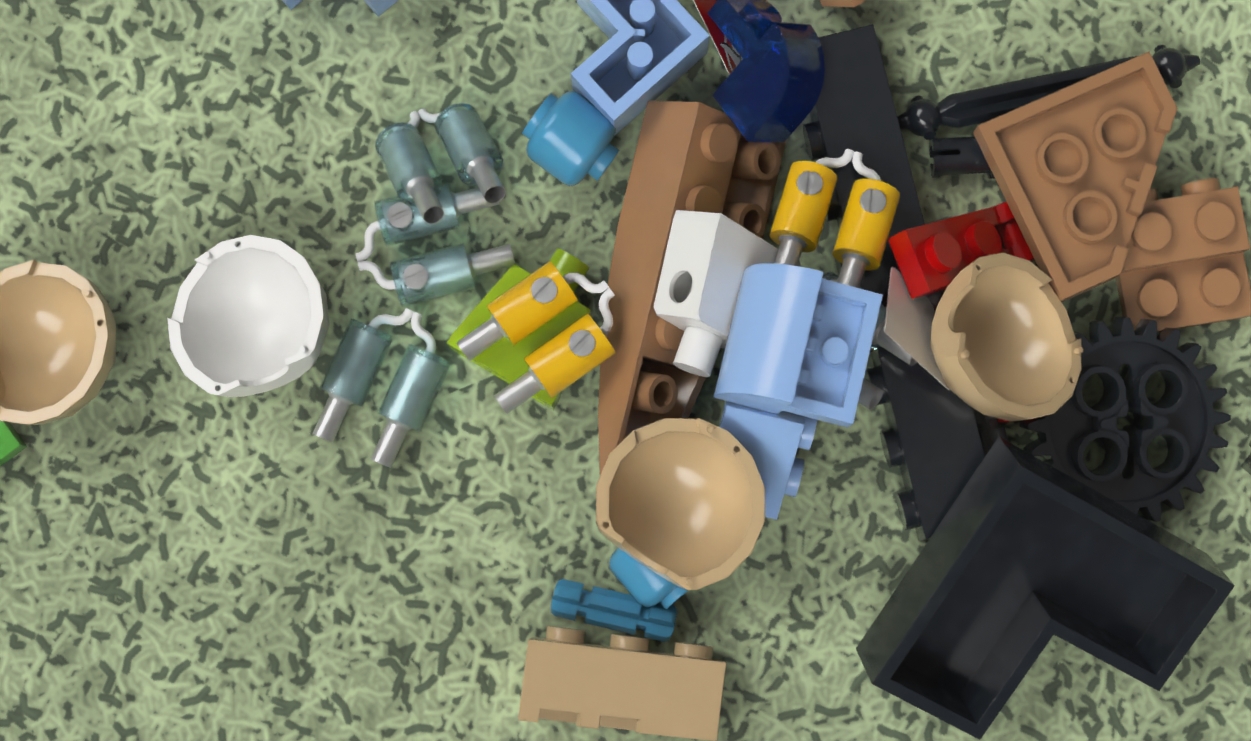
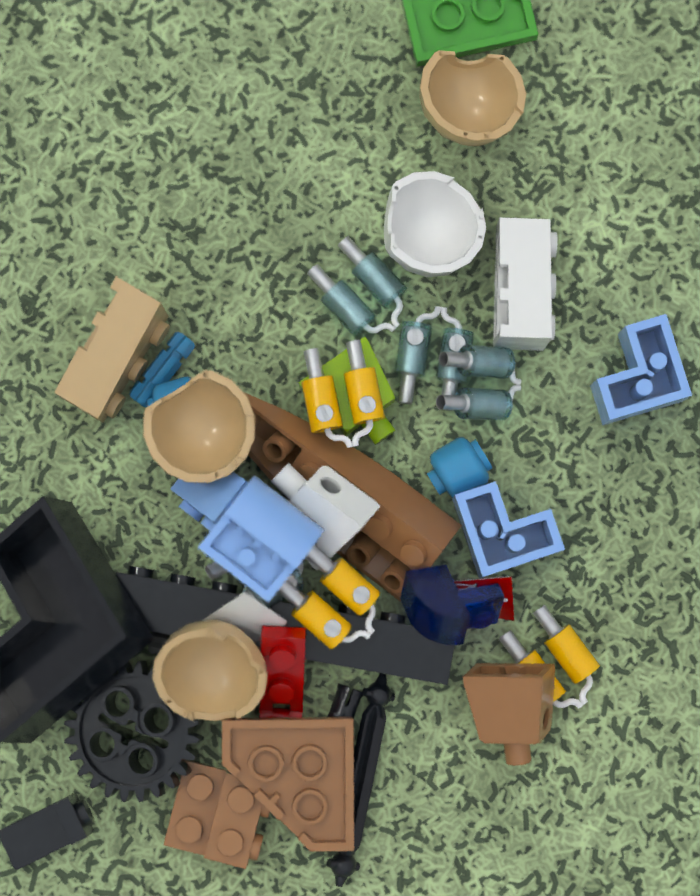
camera: 110 degrees right, 0 degrees up
(277, 159) = (524, 284): none -> white wedge

